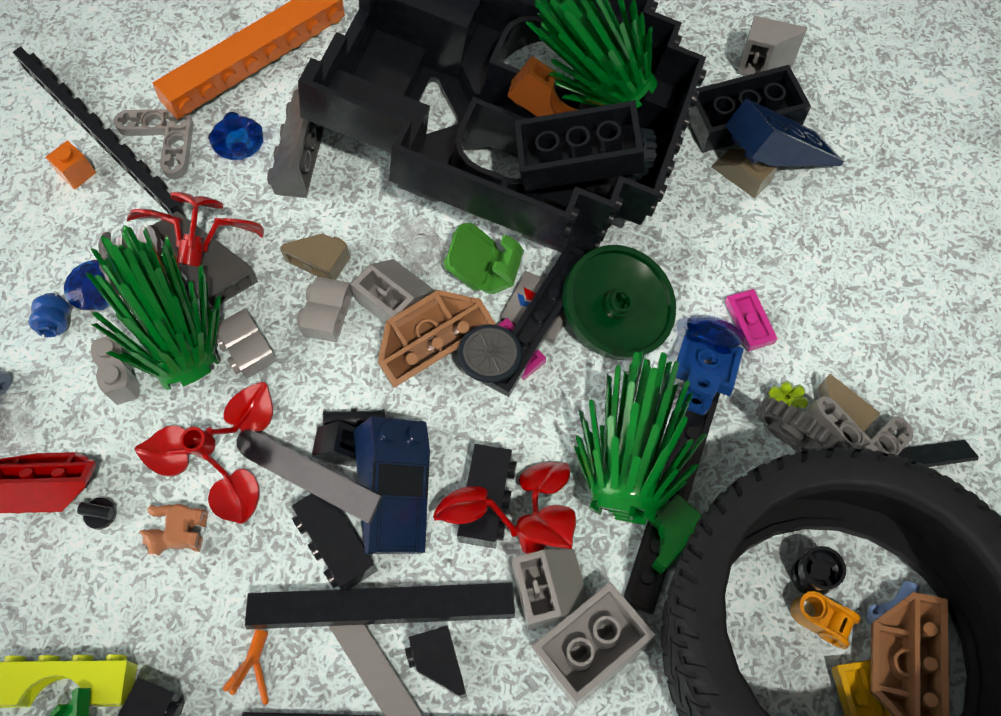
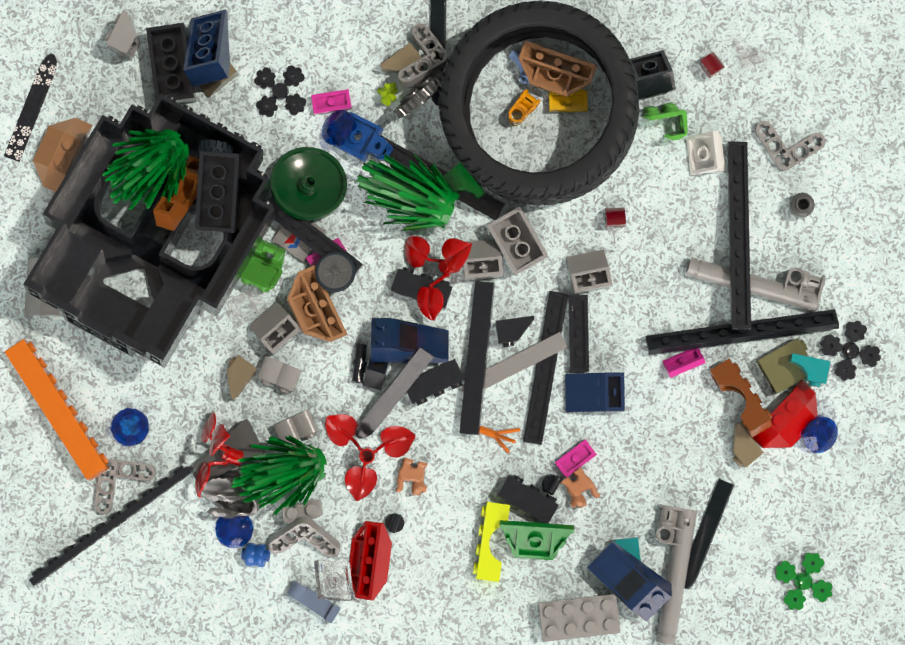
camera: 80 degrees left, 20 degrees up
(70, 164) = (138, 542): orange brick -> none
(80, 369) = (307, 531): none -> light grey beam
(295, 154) = (145, 381): dark grey slope -> none
(747, 253) = (280, 91): none -> black plant
(818, 570) = (497, 105): black wheel -> none

